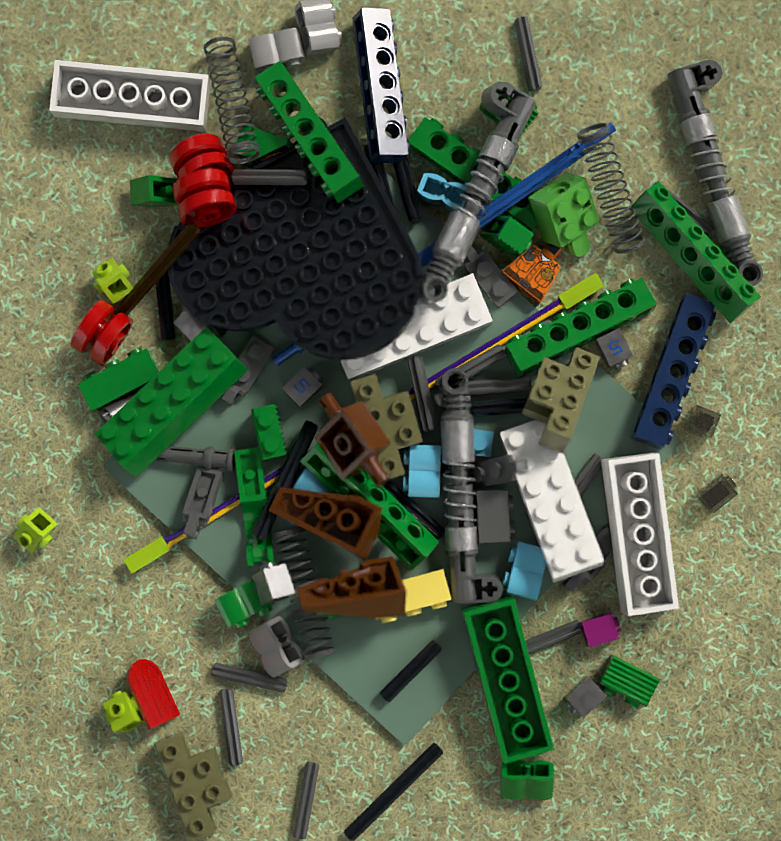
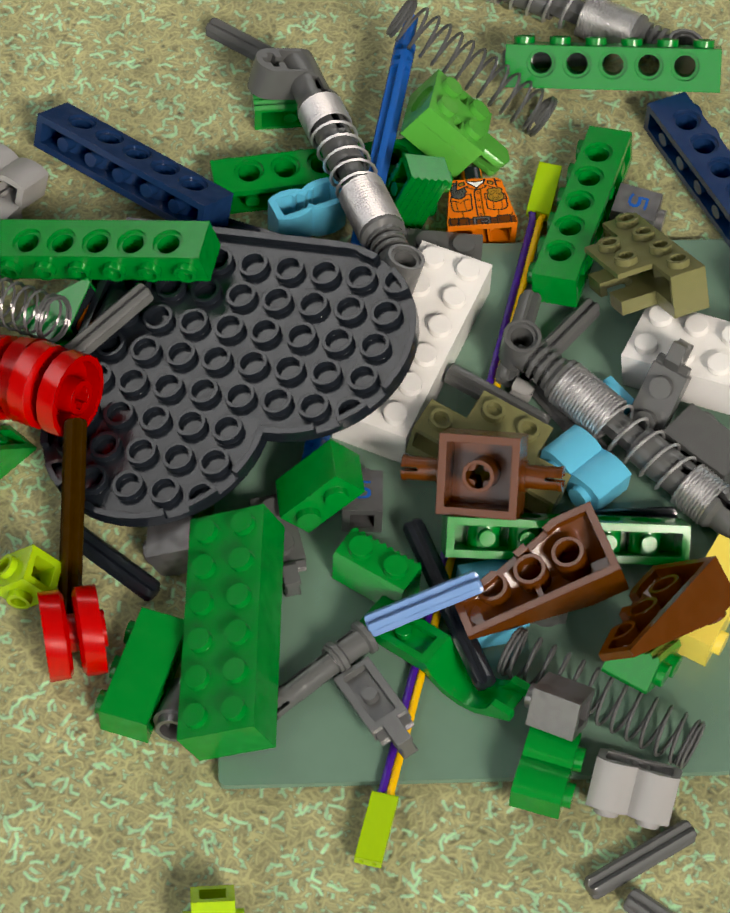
camera: 45 degrees left, 30 degrees down
(265, 475) = (423, 603): none -> medium blue axle
(281, 367) = (319, 486): none -> green brick
(498, 407) = (602, 338): black axle -> none

